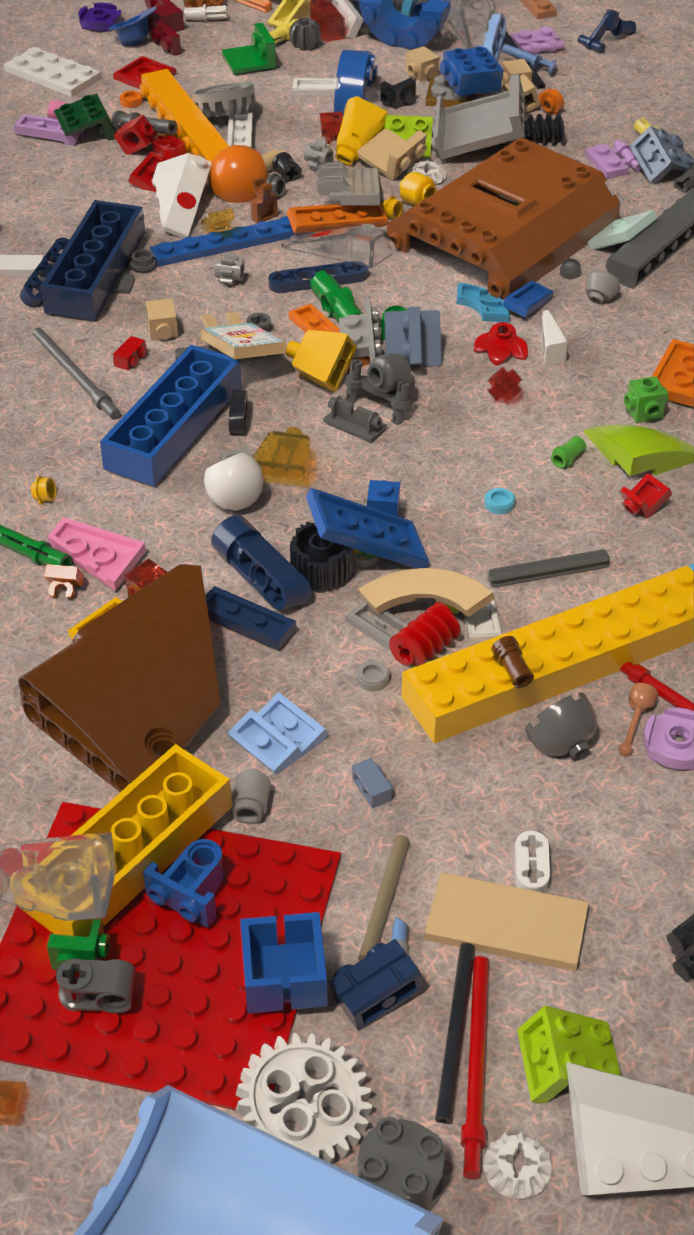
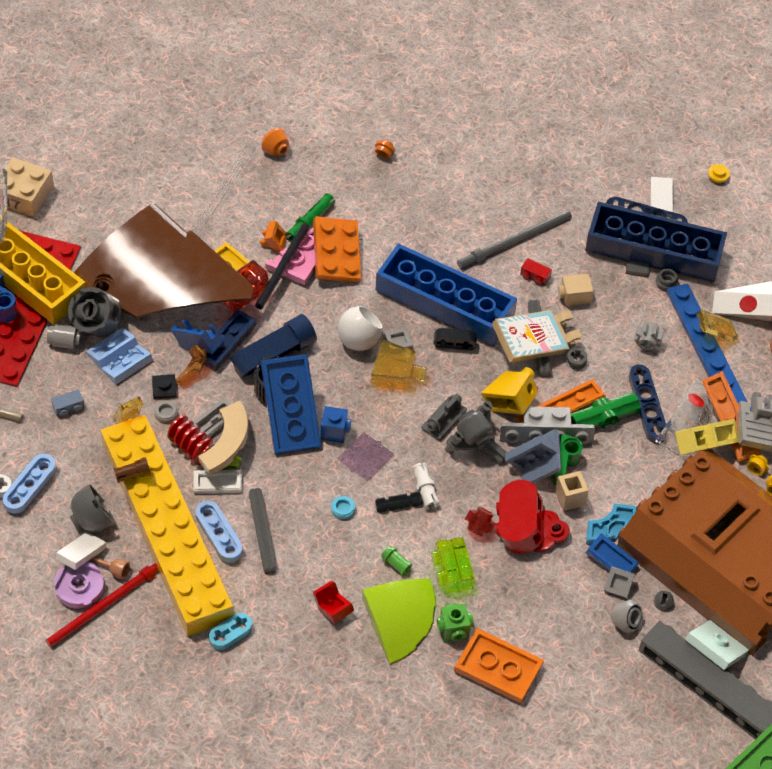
camera: 90 degrees right, 10 degrees up
(44, 489) = (375, 225): yellow plate -> none
(93, 512) = (336, 249): none -> orange plate
(99, 553) = (280, 269): none -> black piece
(222, 739) = (94, 312): none -> dark grey brick
(255, 635) = (204, 339): none -> blue hinge
(266, 204) = (748, 361): dark orange plate -> none
(299, 646) = (194, 368): none -> clear orange arm
(329, 680) = (164, 386): none -> black plate
(382, 214) = (707, 436): none -> light yellow slope
(394, 695) = (128, 410): none -> clear yellow plate
(421, 487) = (365, 456): none -> piece
(455, 316) = (571, 491): none -> tan brick
(458, 432) = (425, 486): none -> white pin
(483, 455) = (398, 501): none -> black axle
(486, 349) = (520, 516): none -> red brick
(511, 802) = (33, 475): none -> light blue plate
(553, 340) = (546, 565): white slope -> none
(558, 292) = (619, 581): none -> light grey tile
(565, 597) = (215, 523): none -> light blue plate
(567, 404) = (453, 564): none -> clear neon green brick
(631, 733) = (81, 550): none -> white tile

